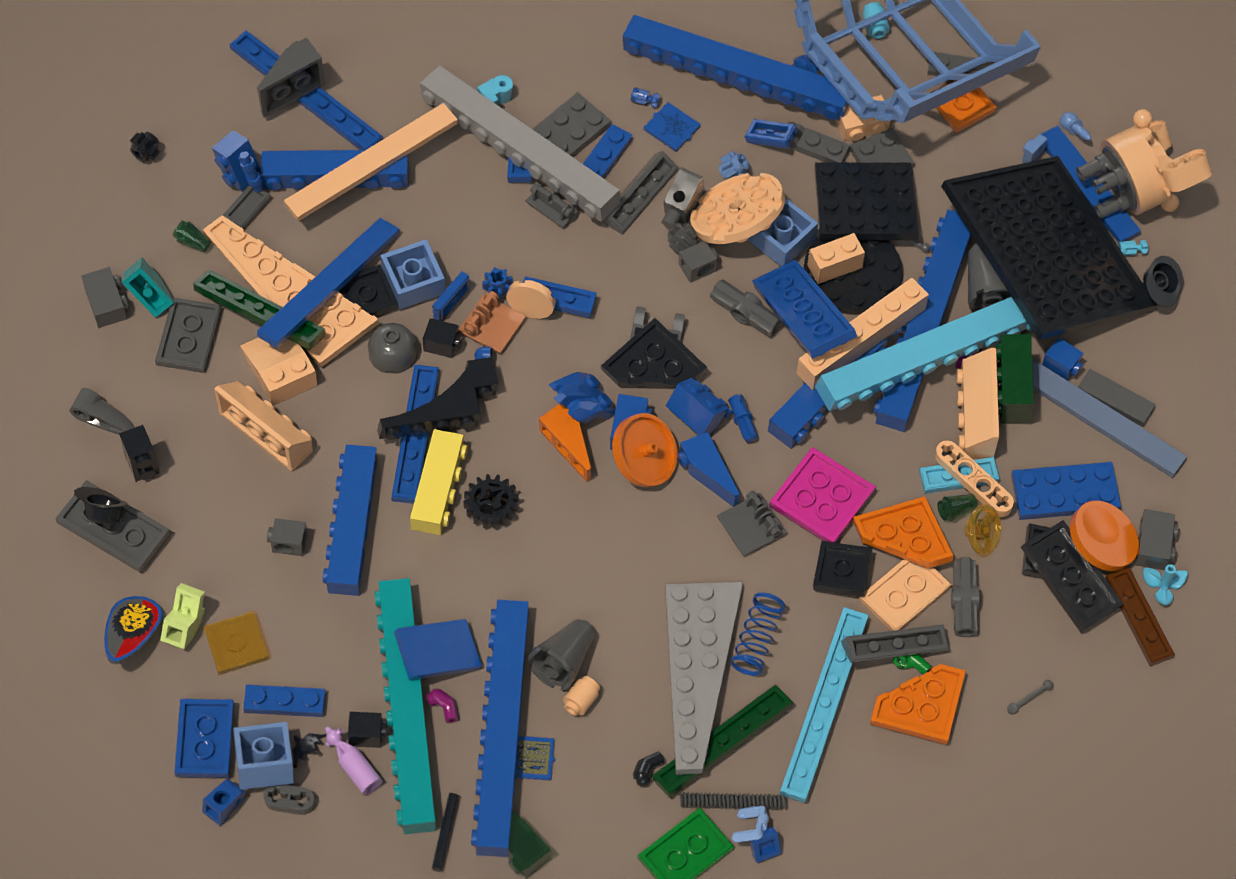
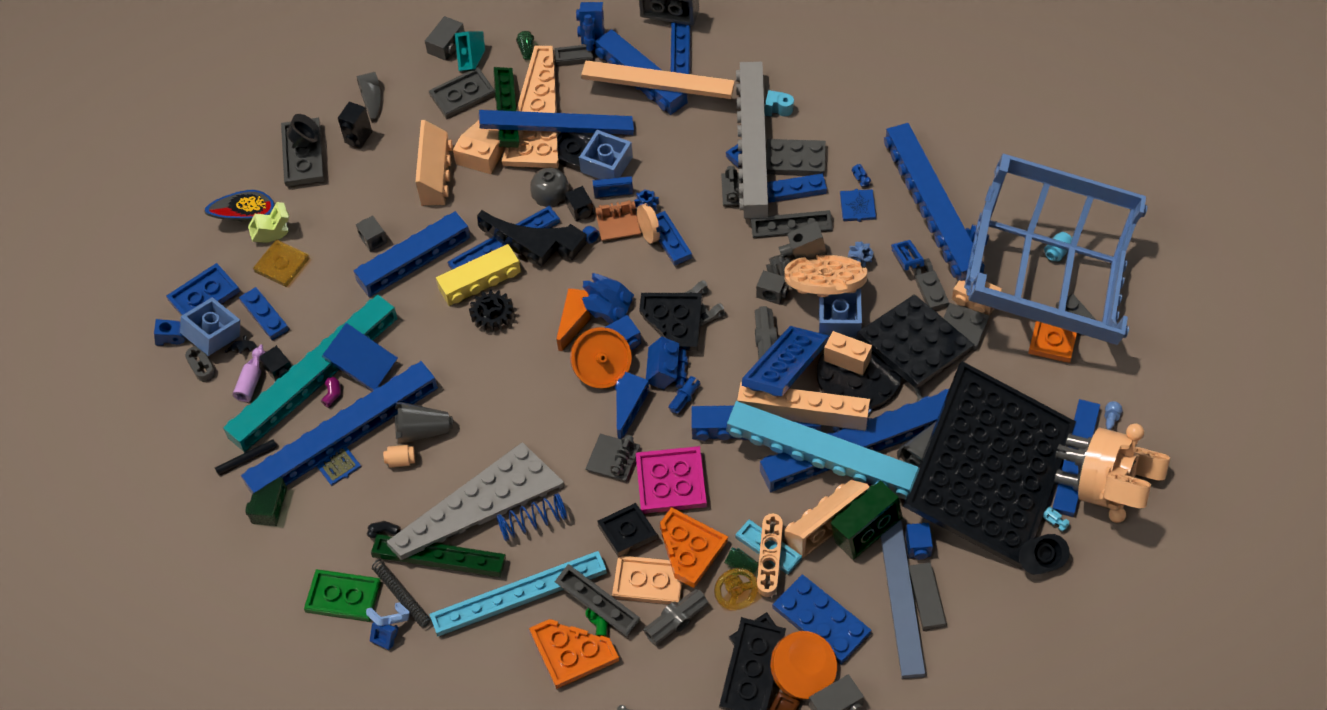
camera: 55 degrees right, 5 degrees down
(1034, 148) = (1064, 404): medium blue plate -> none

